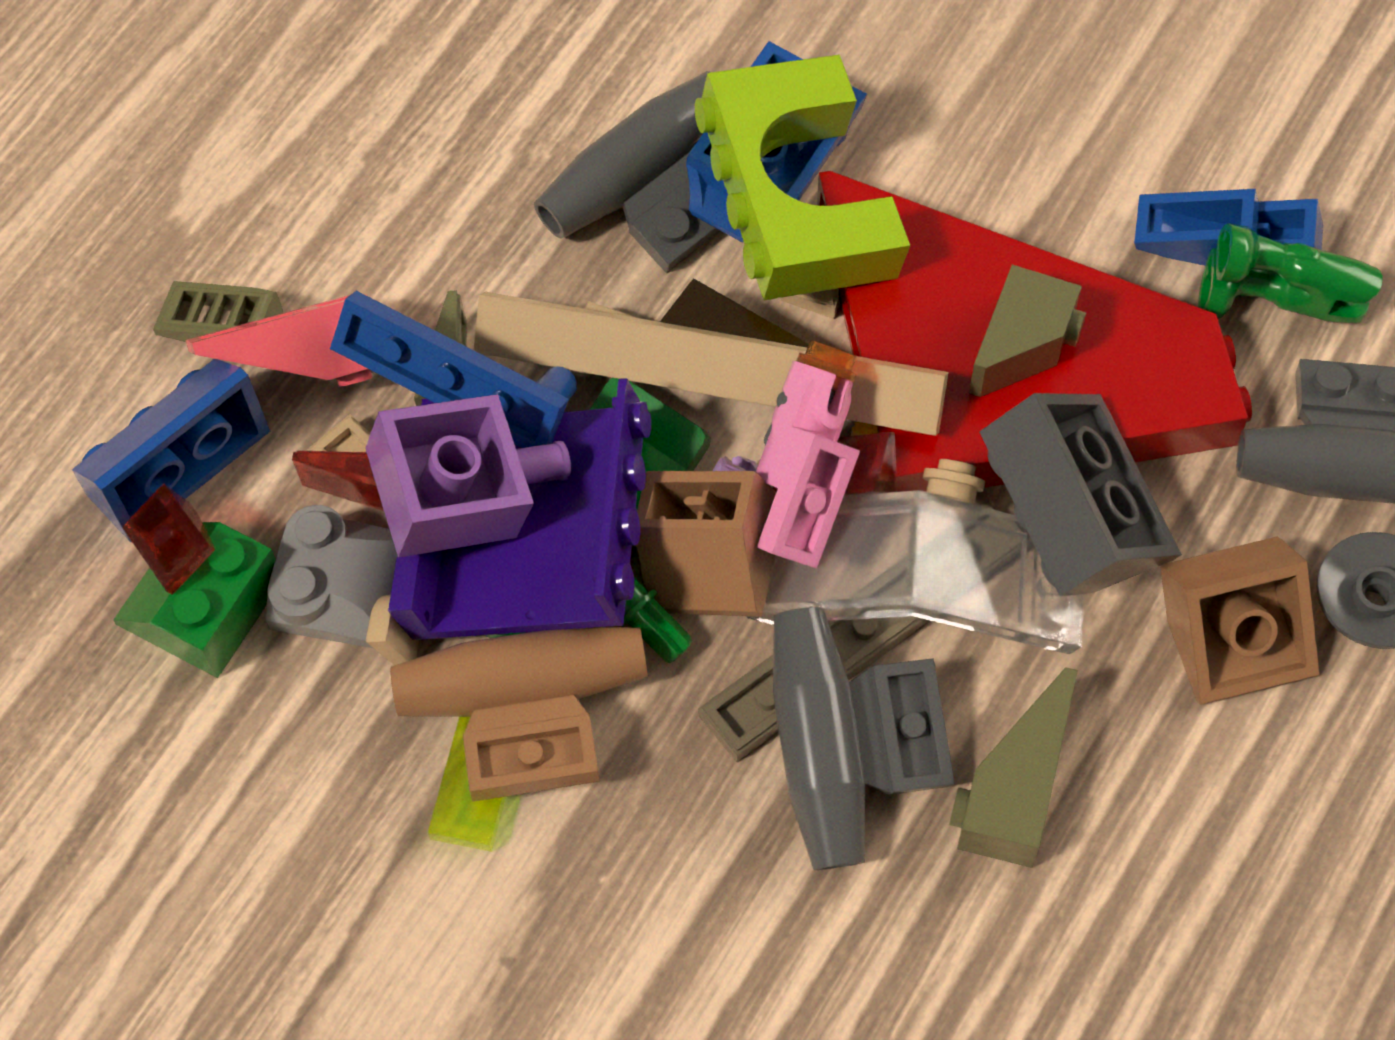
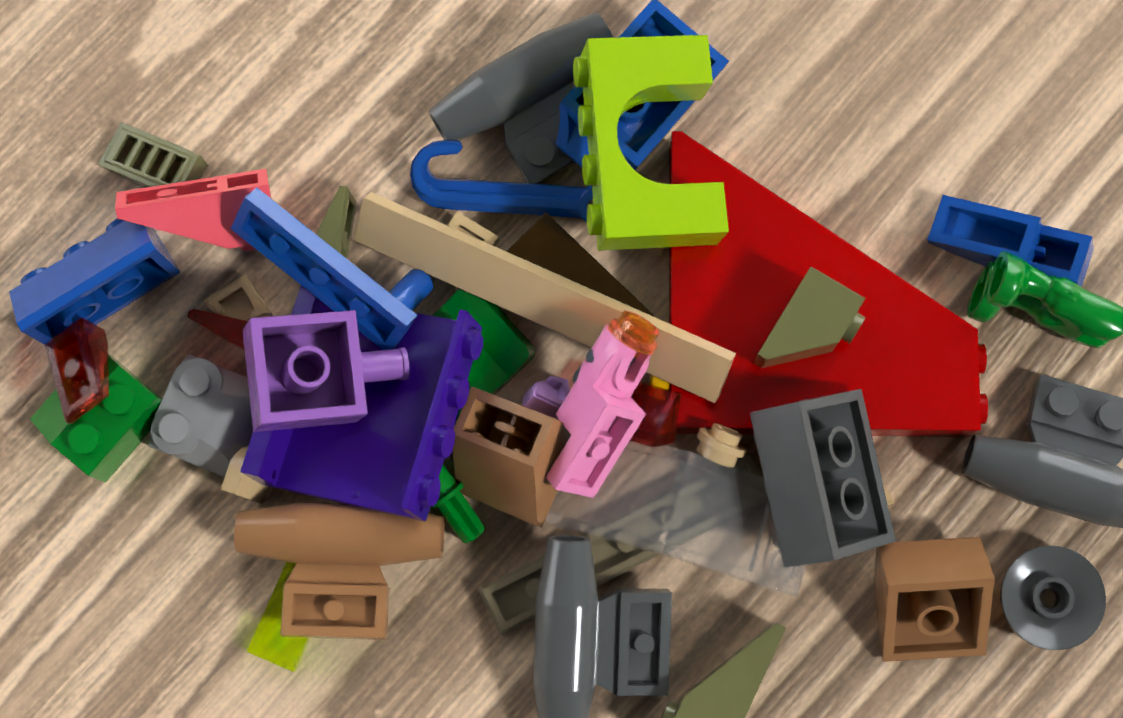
camera: 15 degrees right, 15 degrees up
(627, 281) = (493, 195): none -> blue piece

